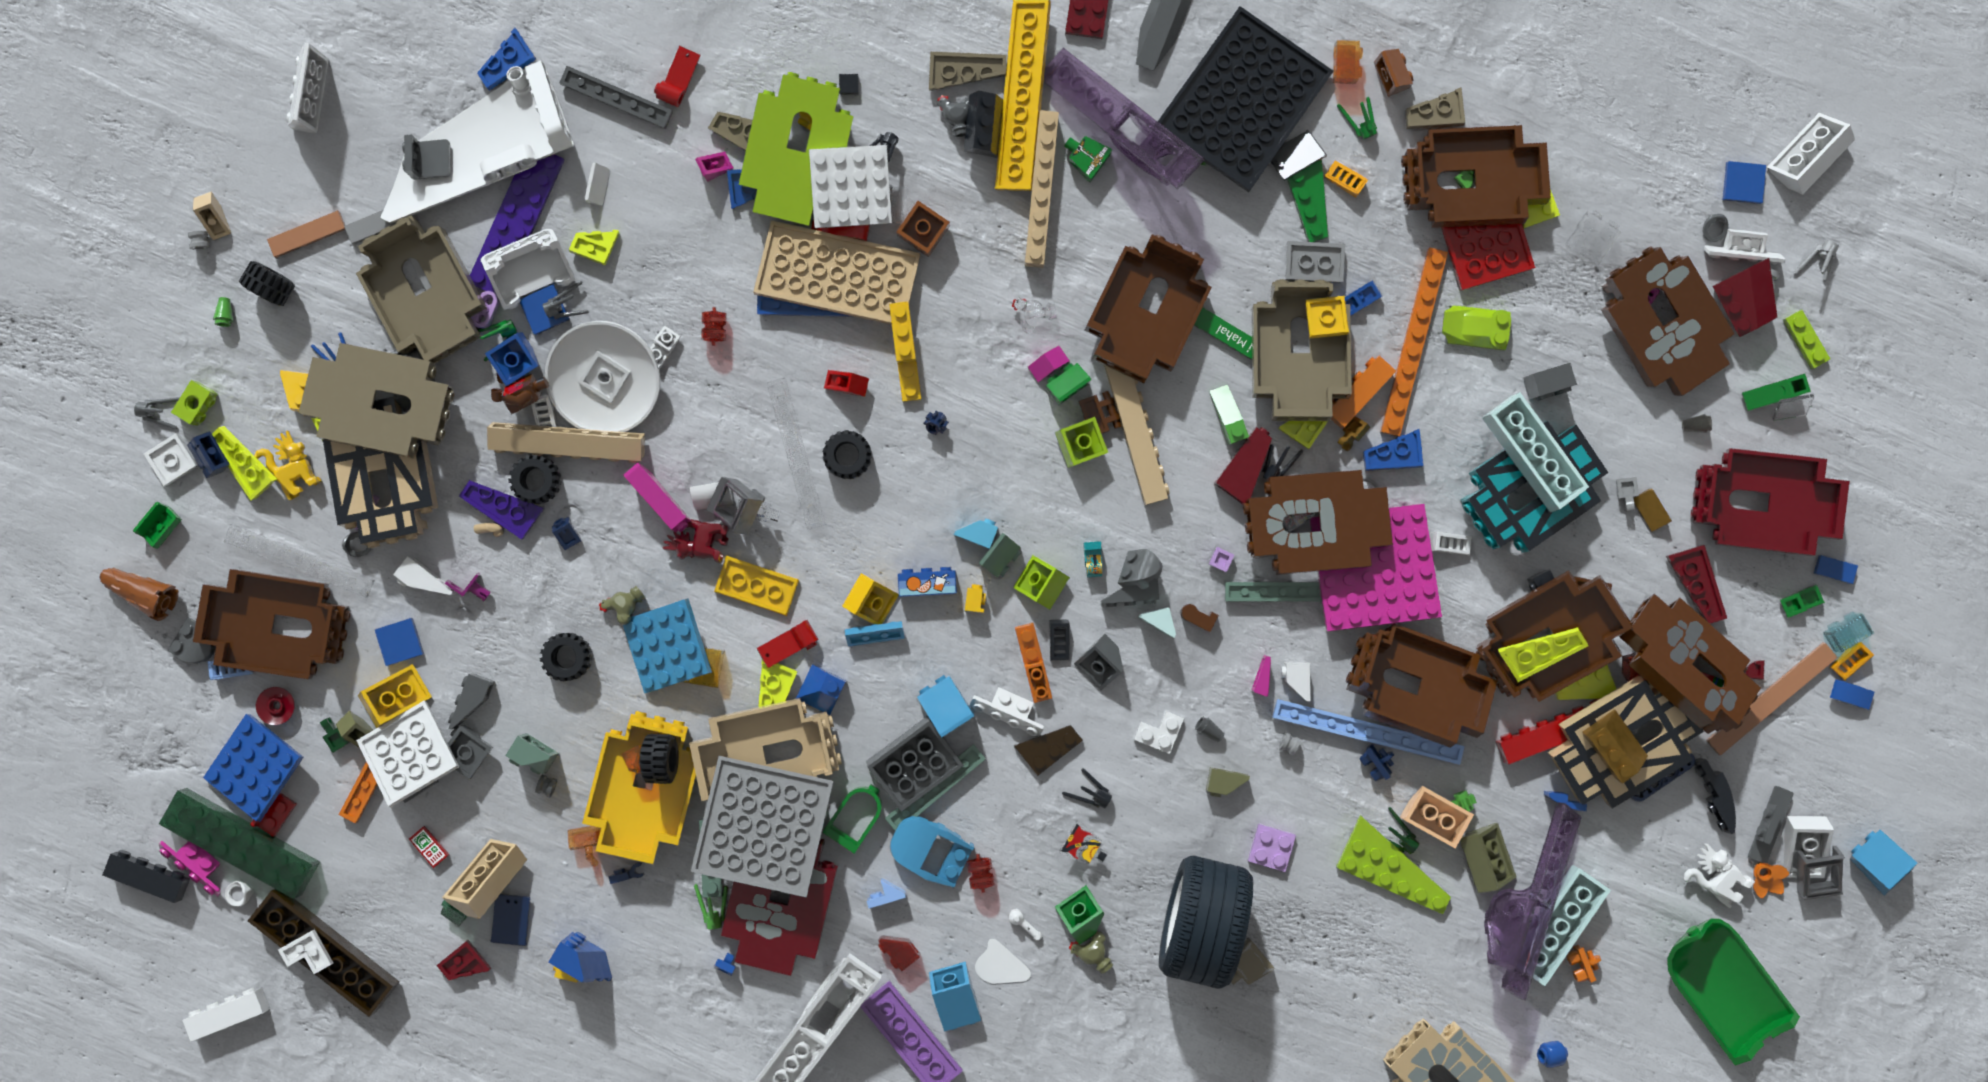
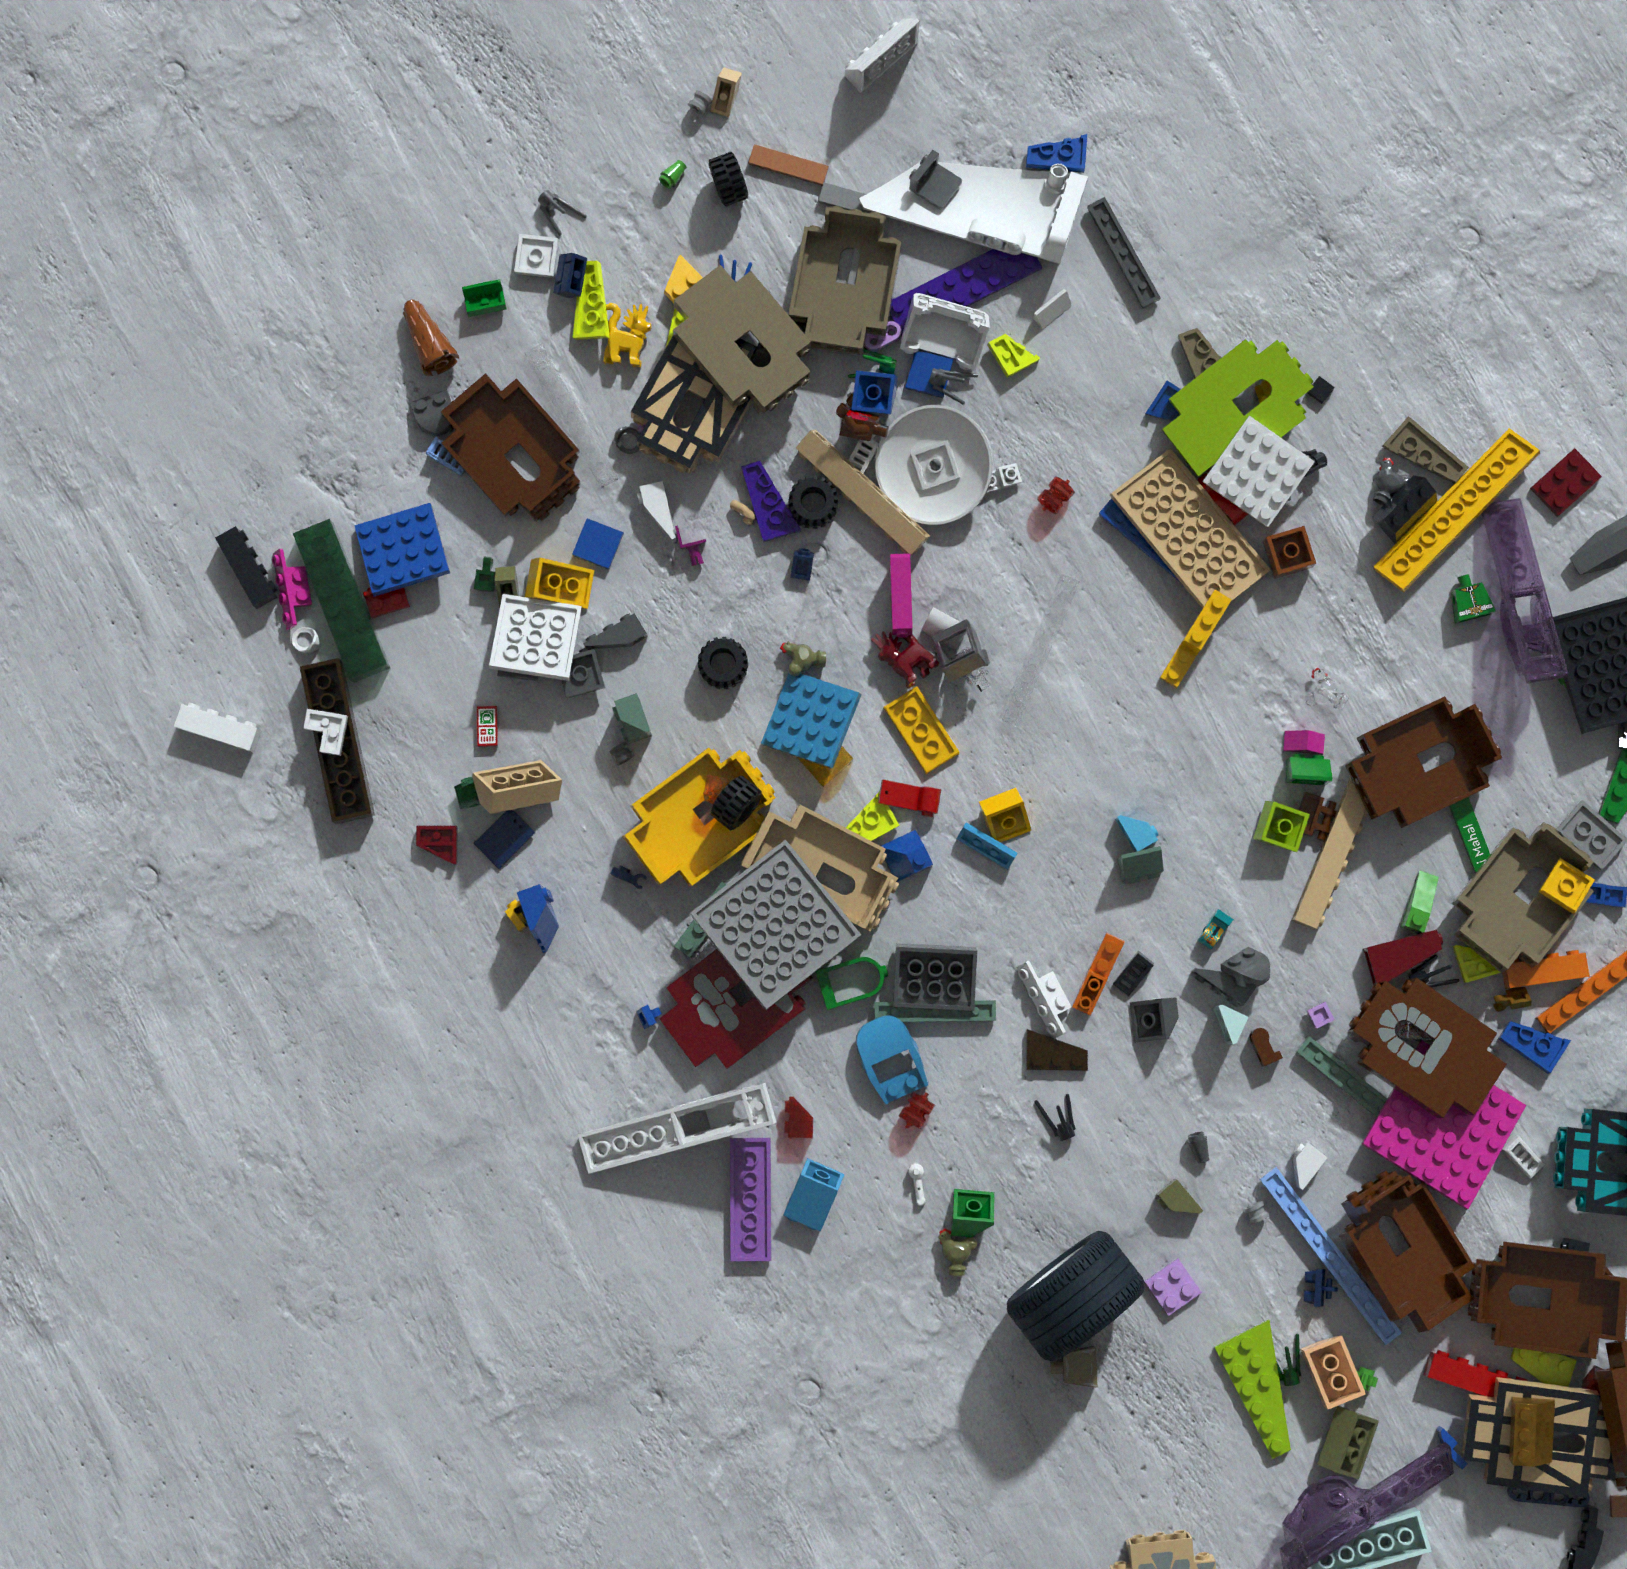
camera: 40 degrees right, 5 degrees down
(185, 405) = (598, 217): lime brick -> none
(266, 705) = (454, 506): dark red dish -> none
(359, 795) = (468, 639): orange plate -> none
(585, 838) = (619, 821): clear orange plate -> none
(678, 77) = (1187, 276): red door -> none
(712, 918) = (668, 970): bright green plant -> none
(714, 165) = (1159, 368): dark pink slope -> none
(832, 446) = (1089, 668): black tyre -> none
(846, 383) = (1127, 626): red slope -> none
(891, 894) = (829, 1068): light blue slope -> none
(900, 204) = (1285, 518): clear plate -> none
(927, 582) = (1063, 839): brick -> none
(936, 422) = (1174, 715): dark blue gear -> none
(945, 705) = (998, 949): dark azure slope -> none
(975, 598) = (1091, 884): yellow brick -> none
(1000, 965) = (870, 1201): white sticker -> none
(1041, 189) = (1411, 597): tan brick -> none
(1041, 582) = (1157, 914): lime slope -> none
(1082, 844) = (1019, 1156): torso -> none
(1162, 737) = (1156, 1122): white plate -> none
(1262, 679) = (1276, 1141): dark pink slope -> none
(1537, 654) = (1526, 1304): neon yellow wing -> none

